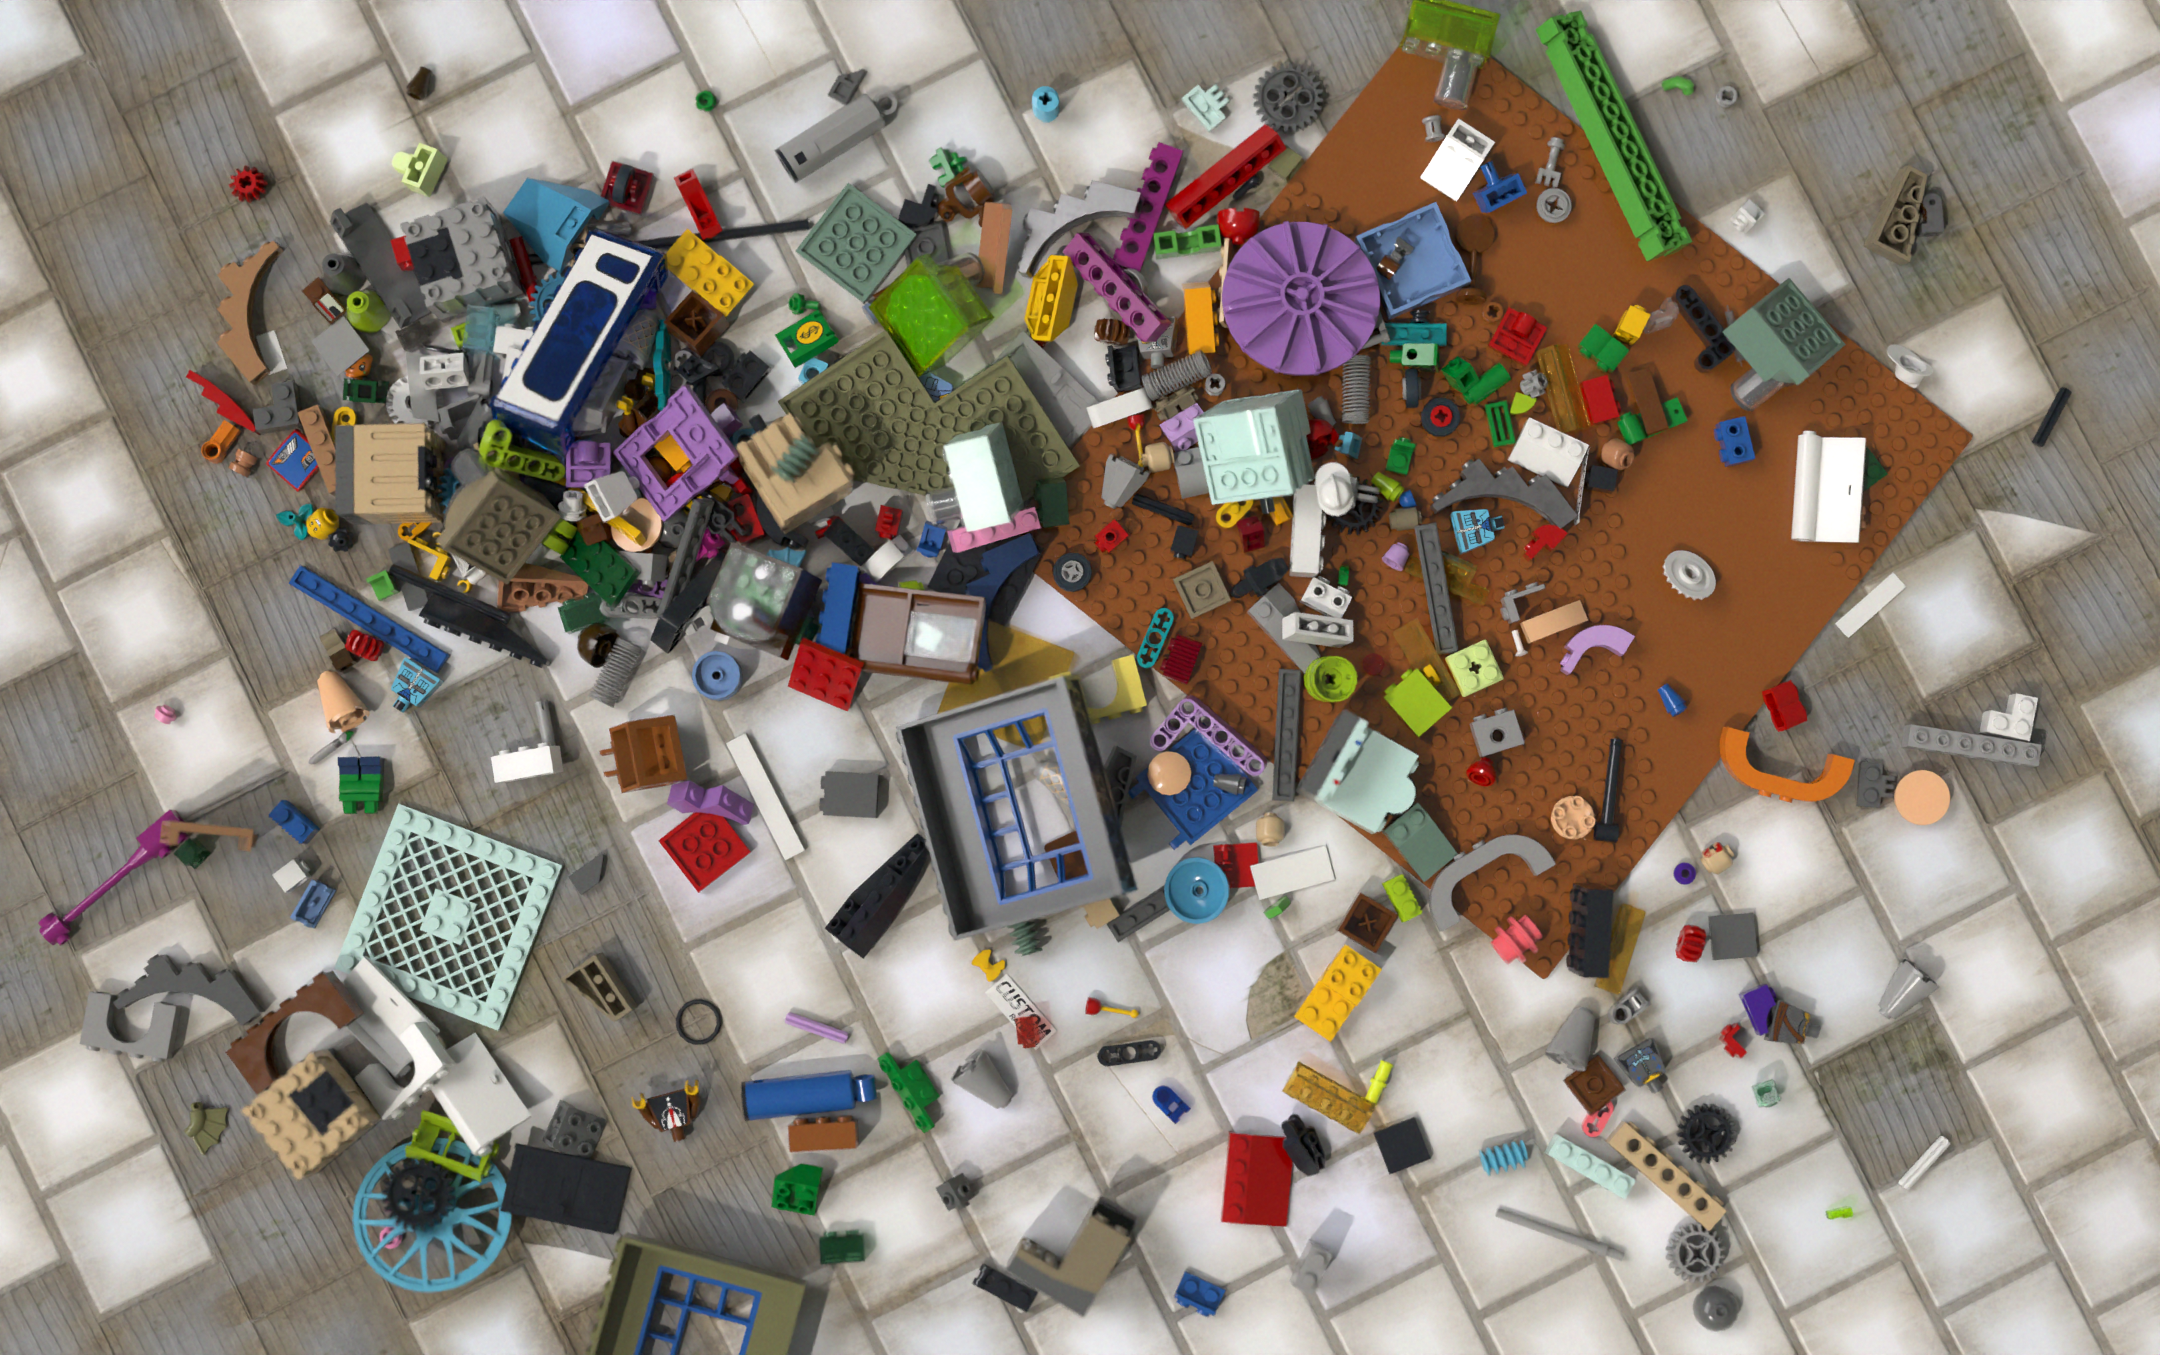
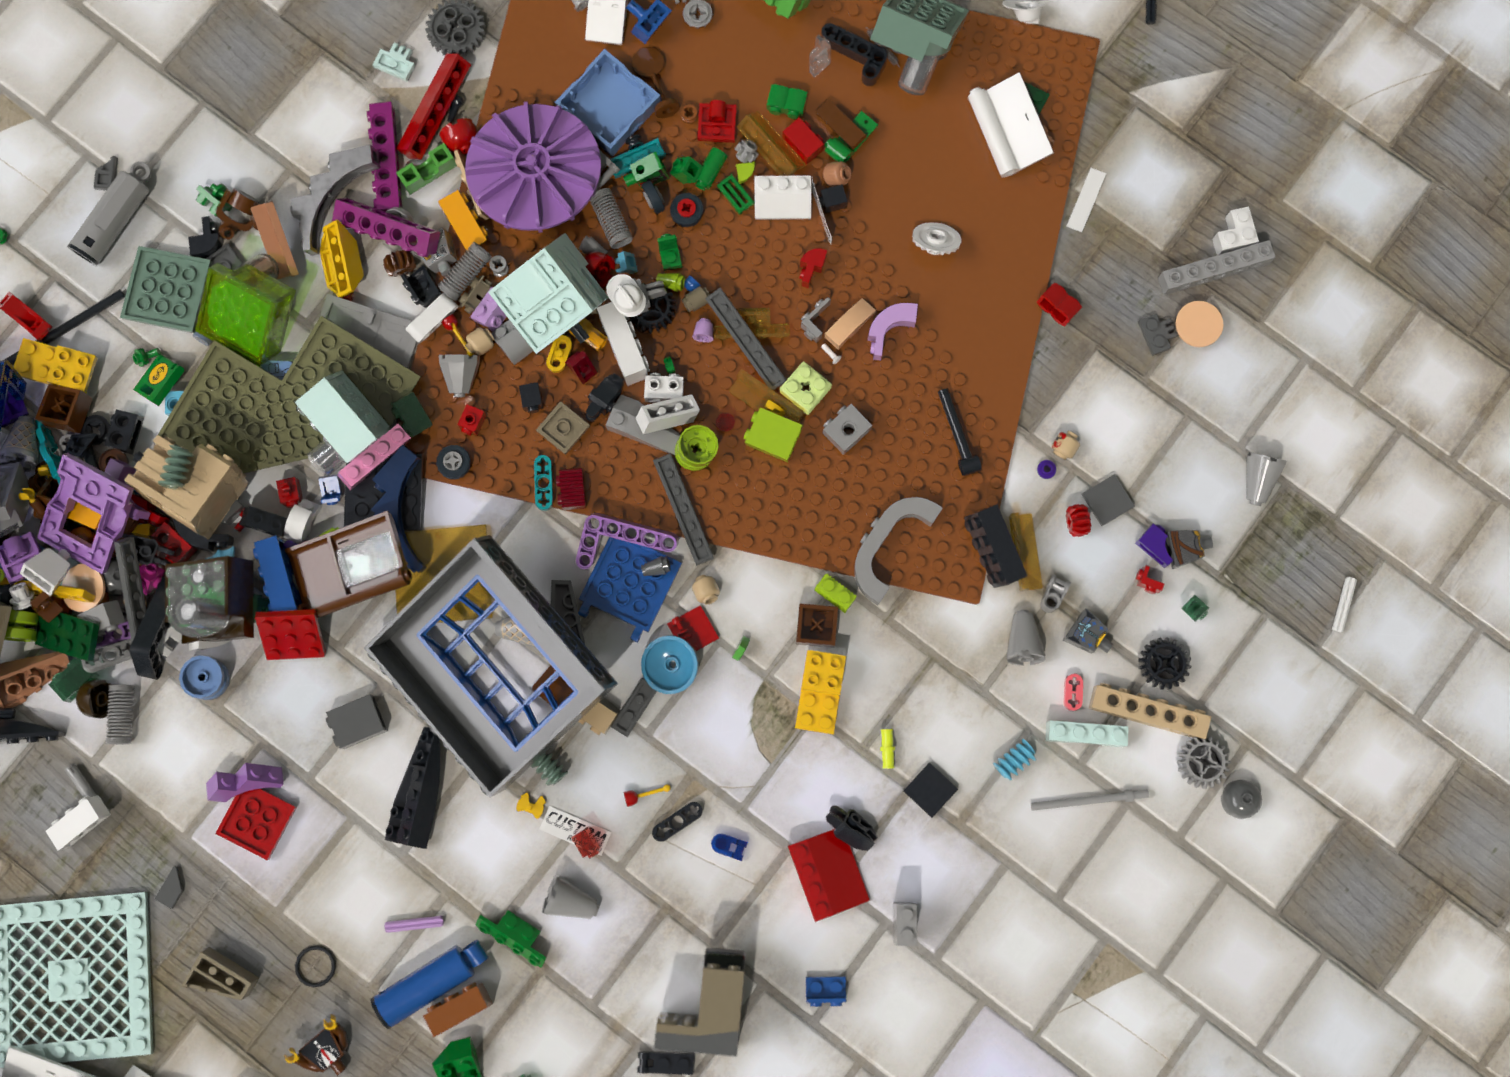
camera: 25 degrees left, 5 degrees down
(646, 754) = (171, 767): dark orange piece -> none
(765, 797) = (288, 756): white tile -> none
(955, 1192) = (588, 1004): dark grey brick -> none
(1044, 112) = (267, 115): medium azure piece -> none
(1129, 691) = (543, 535): light yellow arch -> none
(1163, 509) = (503, 380): black axle -> none
(1169, 773) = (604, 582): light nougat dish -> none
(1286, 164) = (477, 77): olive piece -> none
(1292, 872) = (739, 615): white piece -> none
(1328, 1097) = (853, 779): clear yellow brick -> none
(1360, 774) = (754, 510): light aqua piece -> none
(1390, 263) = (592, 113): leg -> none
(1420, 842) = (828, 542): sand green slope -> none
(1474, 528) = (753, 281): medium azure torso -> none
(1478, 482) = (763, 236): flat silver arch -> none
(1482, 772) = (850, 465): red brick -> none
(1516, 939) = (939, 584): coral piece -> none
(1572, 817) = (938, 466): light nougat dish -> none
(1594, 1086) = (1059, 668): reddish brown tile -> none
(1631, 324) = (799, 71): yellow brick -> none
(1672, 700) = (970, 340): blue cone -> none
(1733, 755) = (1043, 364): orange arch -> none
(1734, 442) = (921, 124): blue brick -> none
(1844, 1212) = (1302, 673): clear neon green tile -> none

